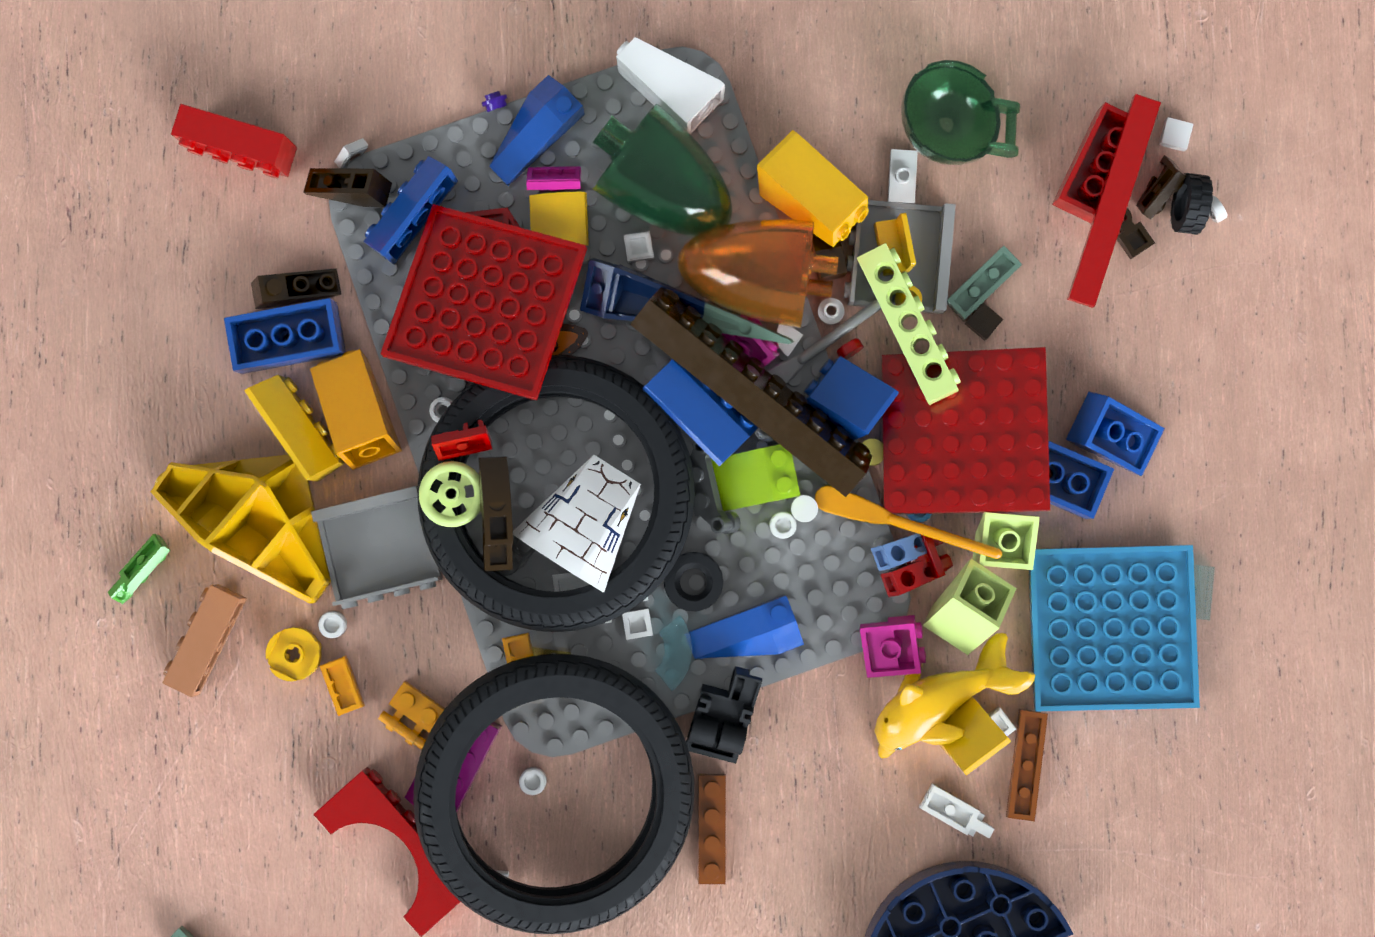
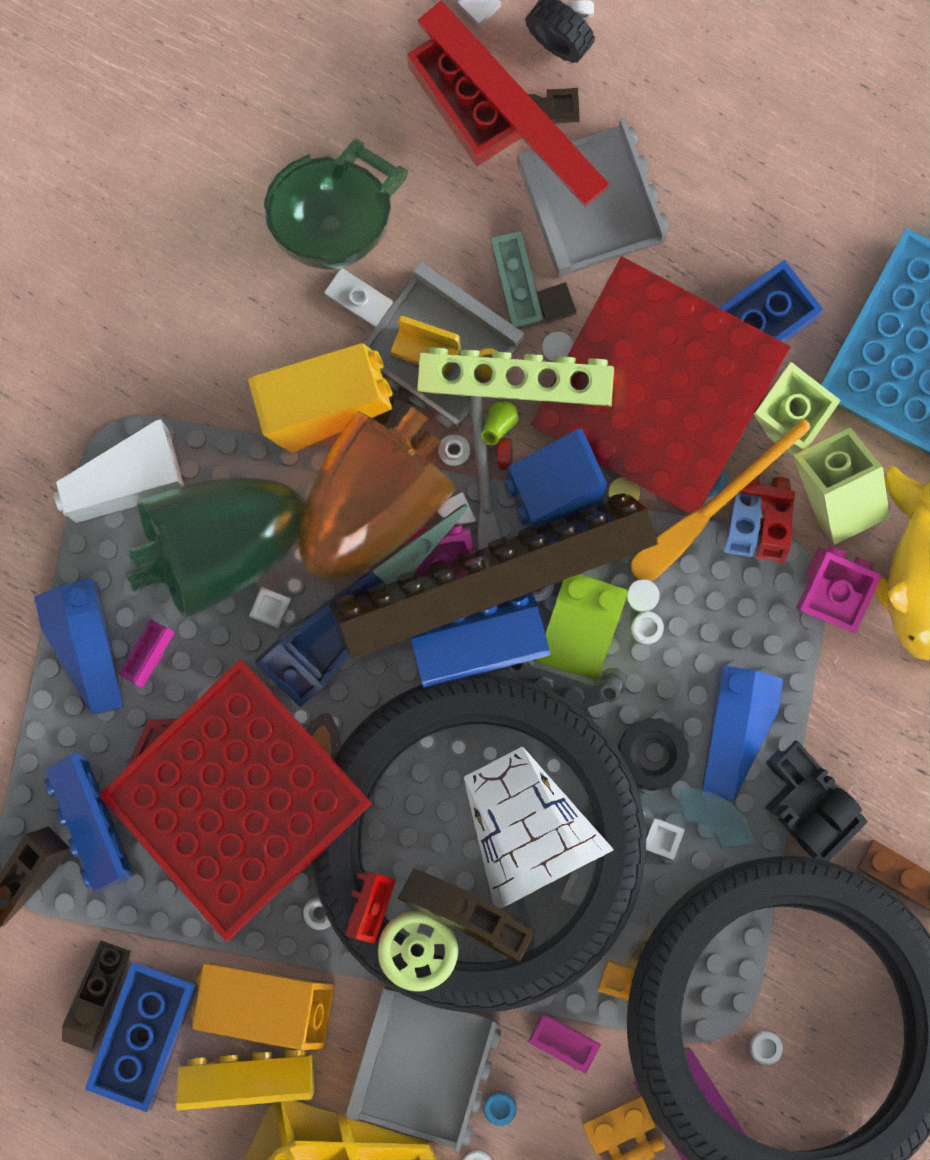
camera: 60 degrees left, 5 degrees down
(382, 617) = (500, 1108): none -> dark azure tile
(453, 636) = (564, 1043): none -> dark pink plate
(494, 101) = (27, 669): dark purple plate -> none
(560, 215) = (189, 669): yellow slope -> none
(872, 331) = (499, 420): none -> lime cone
(951, 340) = (556, 345): none -> white tile
(1069, 328) = (613, 223): none -> light grey panel
(1115, 433) = (747, 238): blue slope -> none
(1161, 188) = (526, 50): dark brown wing -> none

